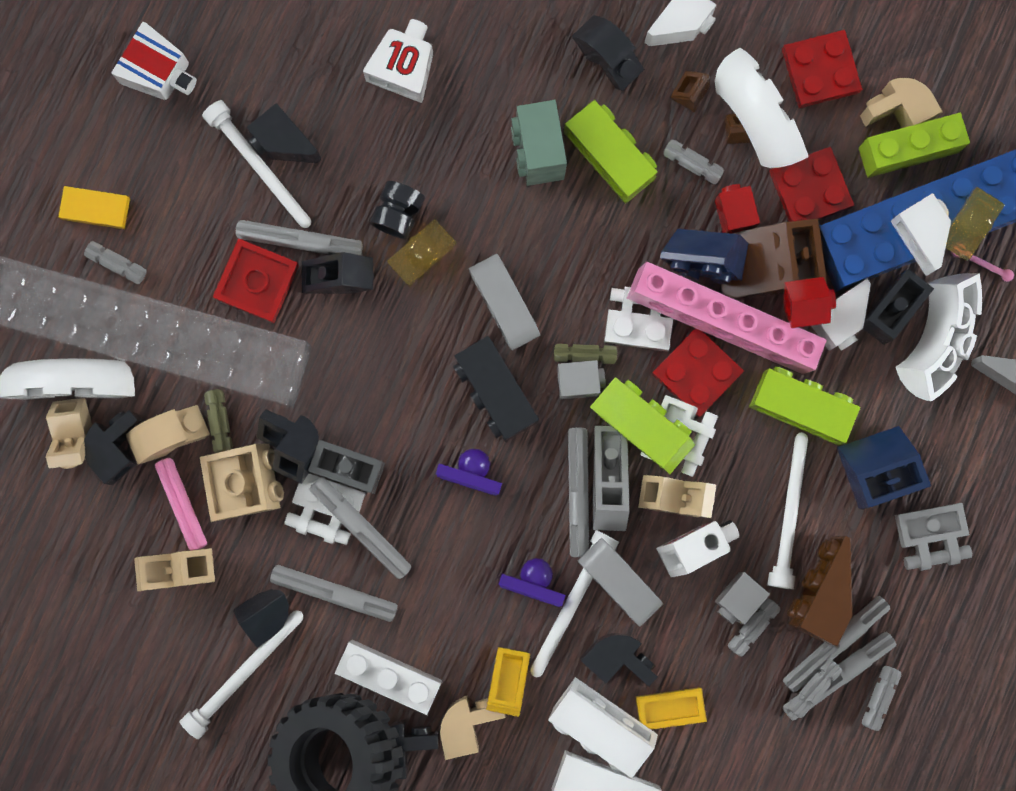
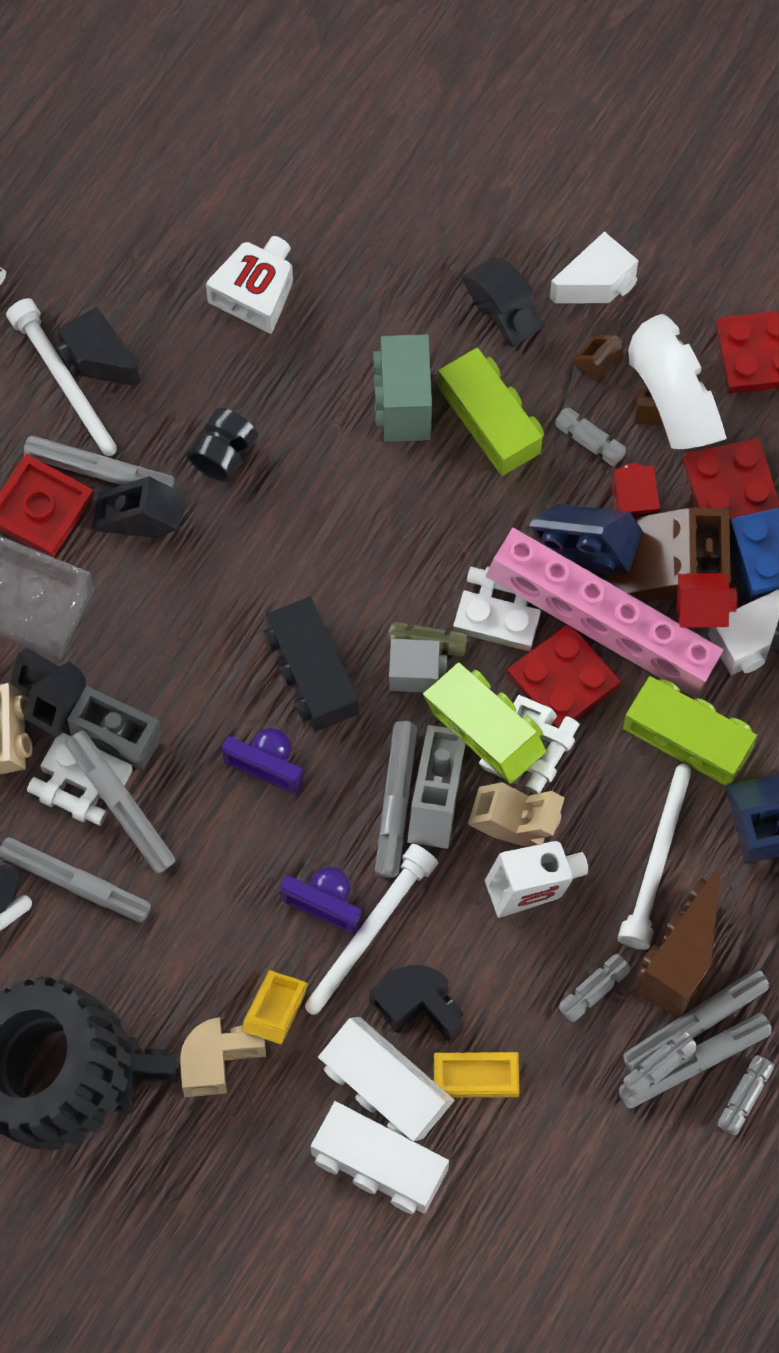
camera: 10 degrees right, 15 degrees down
(388, 676) = (127, 984): white brick -> none
(421, 252) = (244, 499): clear yellow tile -> none
(504, 302) = (336, 566): light grey beam -> none
(620, 582) = (432, 905): light grey beam -> none
(741, 599) = (581, 948): light grey brick -> none

